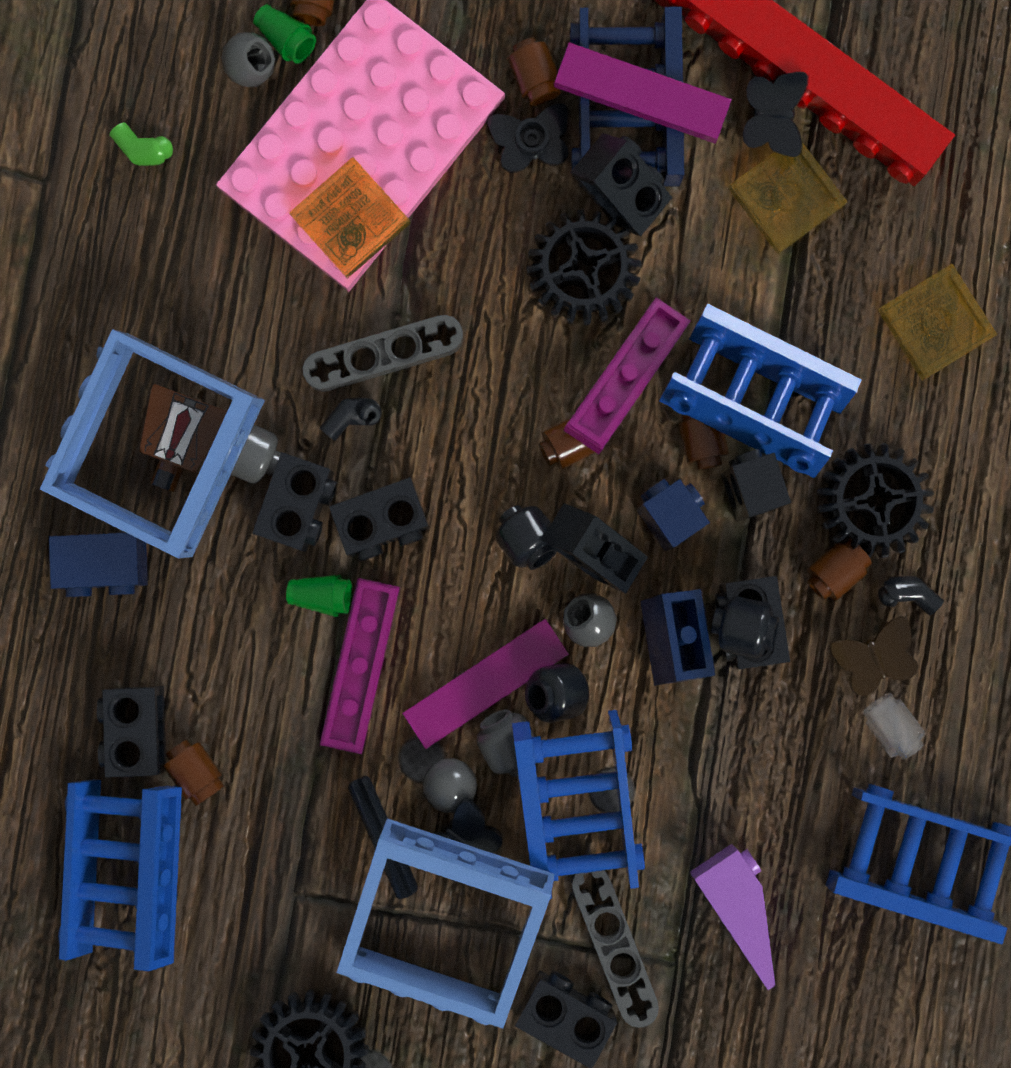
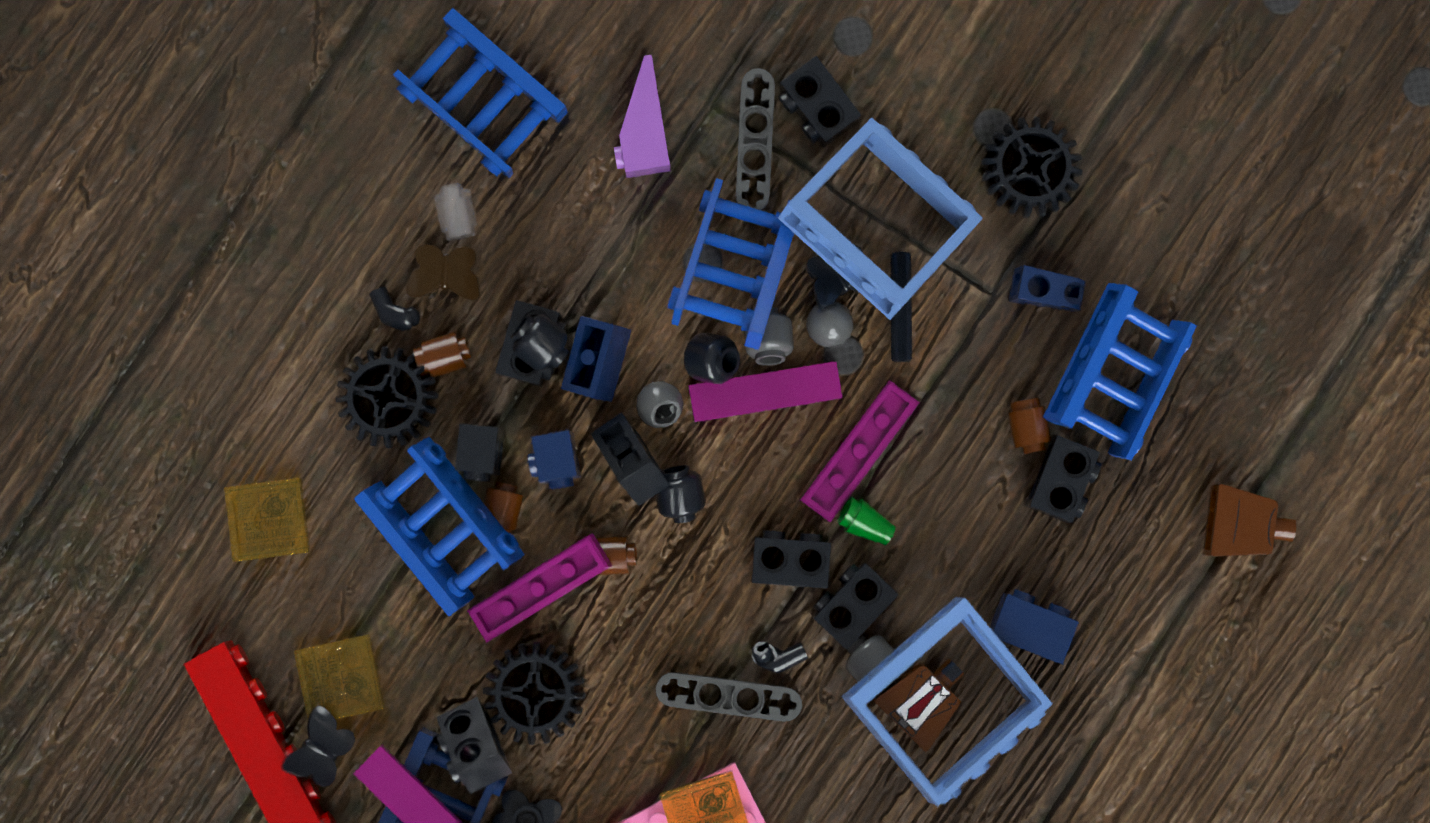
camera: 160 degrees left, 0 degrees up
(237, 925) = (1046, 289): none -> dark blue leg

